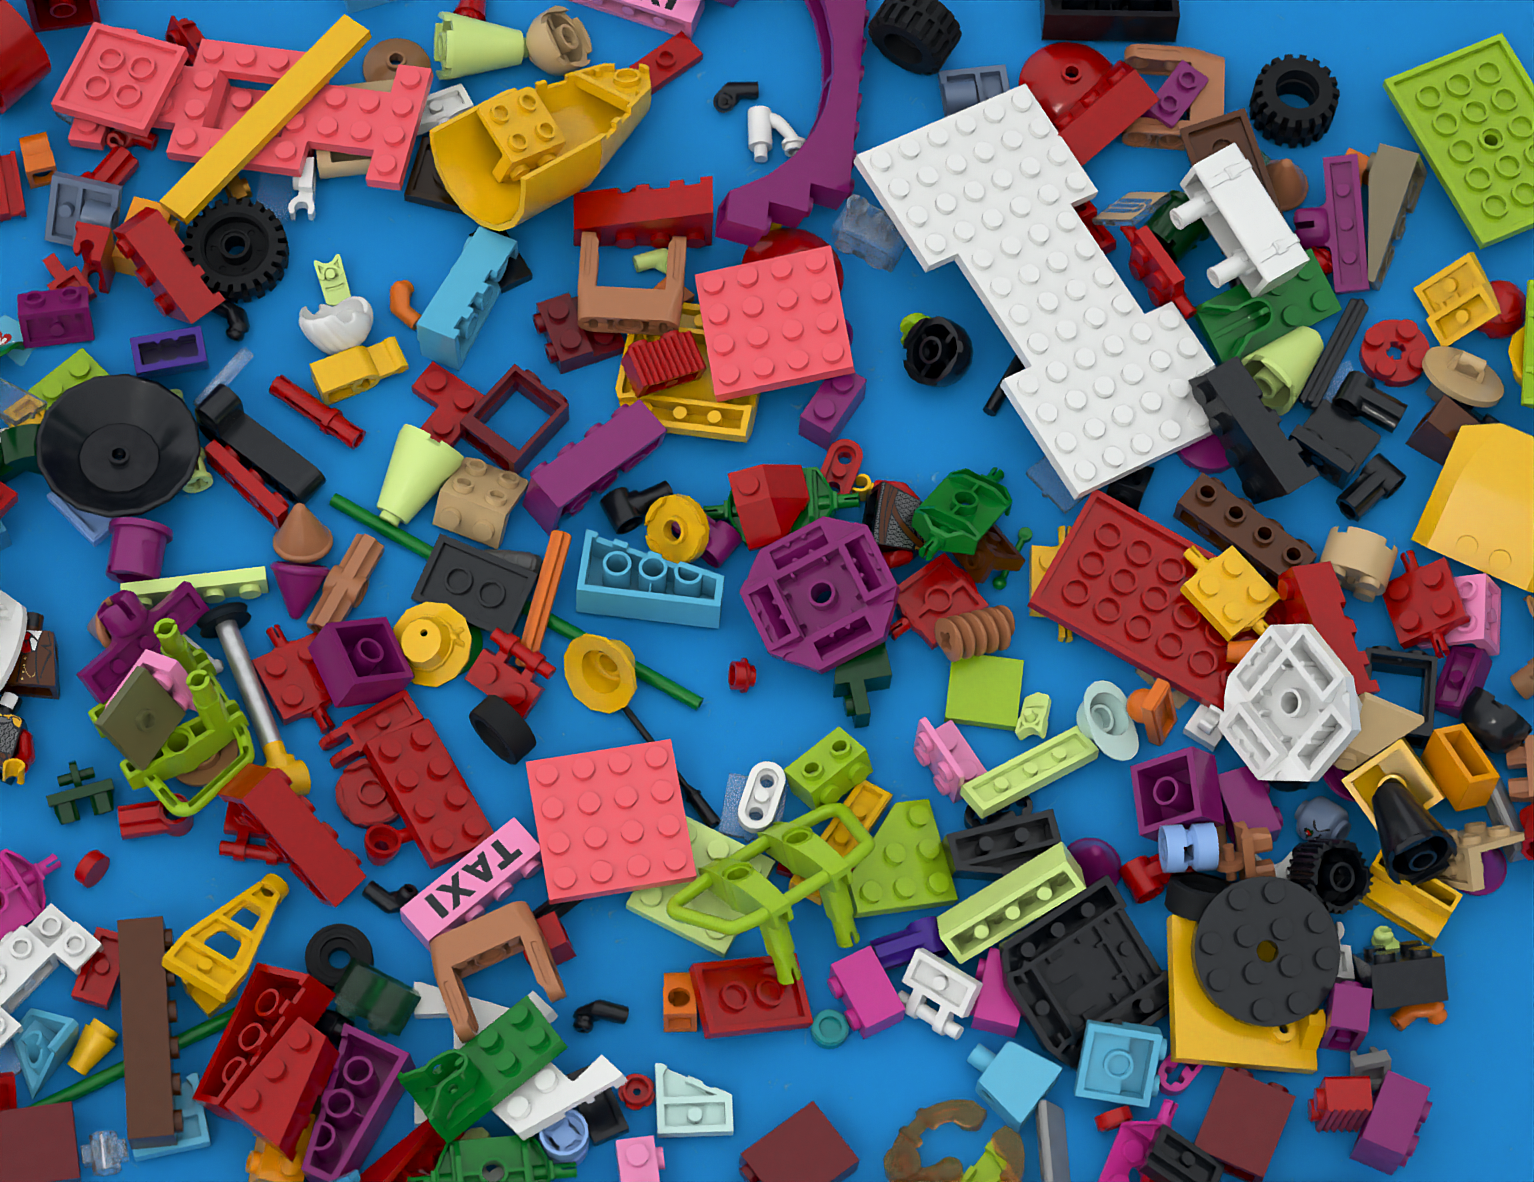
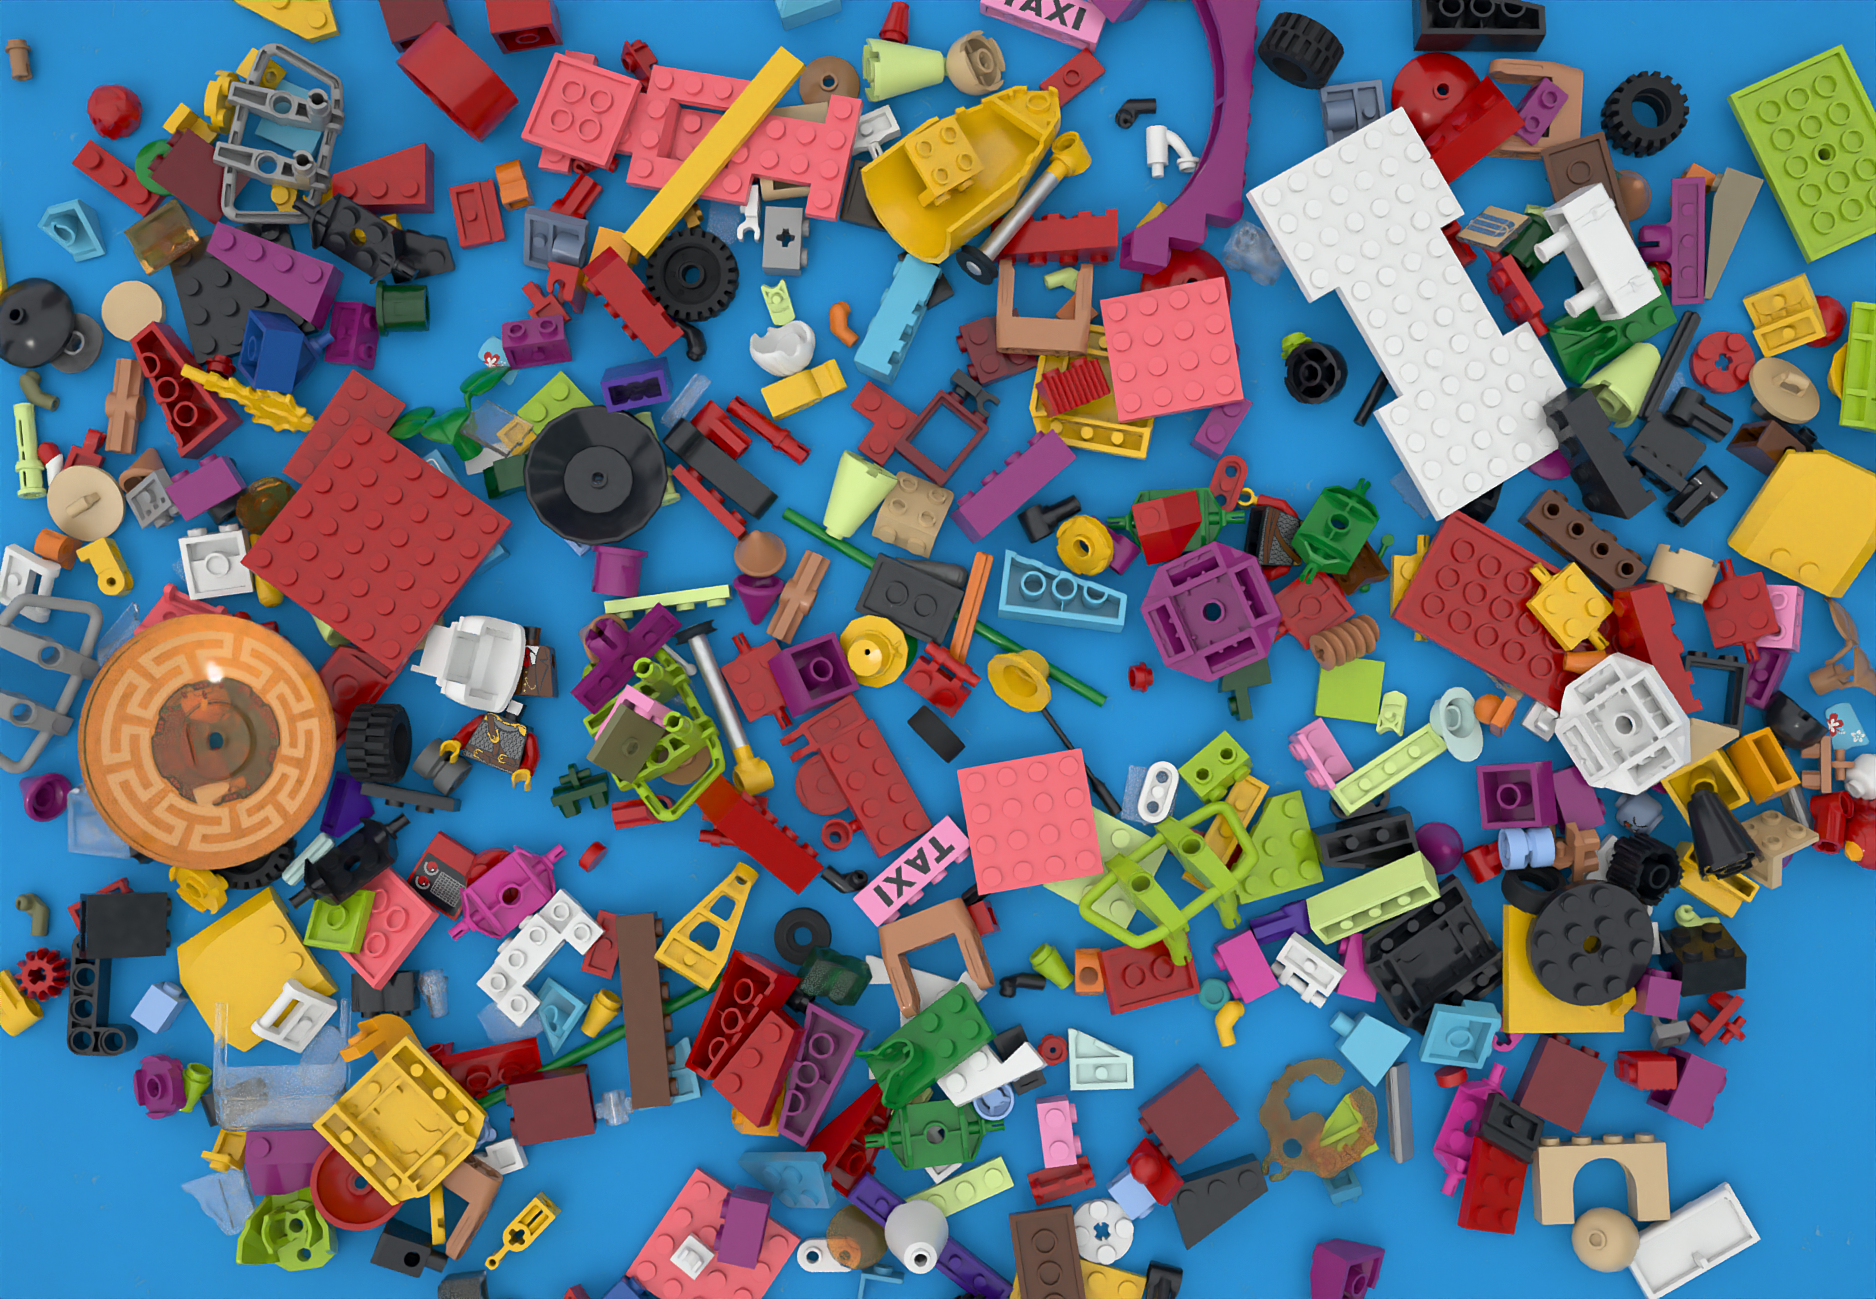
camera: 10 degrees right, 20 degrees up
(262, 408) = (716, 426): none -> red piece
(338, 200) = (782, 223): none -> light grey brick
(550, 370) = (968, 388): none -> black plate
(635, 993) = (1050, 964): none -> lime cone
(659, 135) = (1068, 160): none -> piece
(843, 1056) = (1226, 1019): none -> yellow arm
(1433, 1057) = (1726, 1006): none -> red hips

